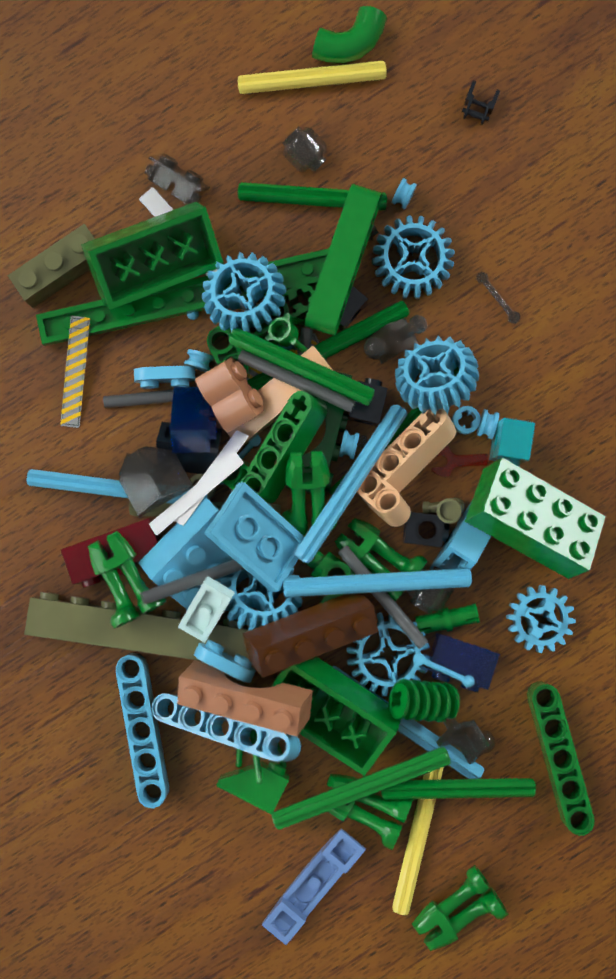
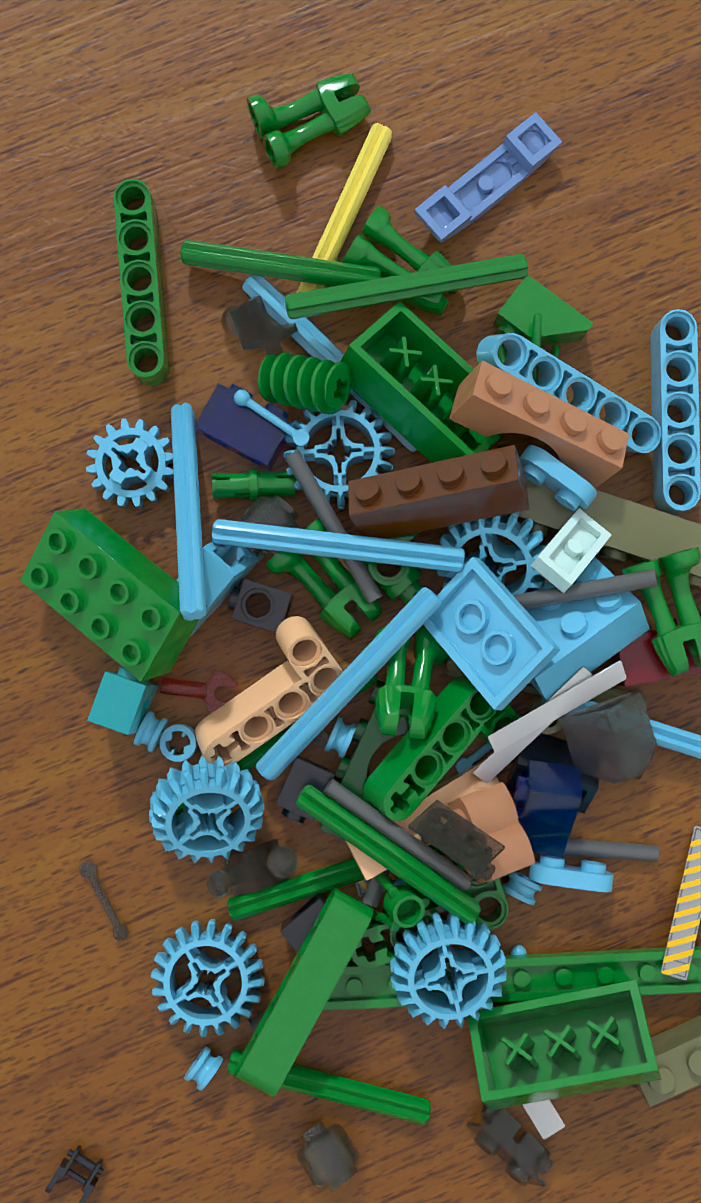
camera: 175 degrees left, 0 degrees up
(254, 385) = (458, 839): none -> clear smoke hinge
(447, 510) = (226, 625): olive piece -> none
(492, 588) = (187, 513): none -> medium azure axle

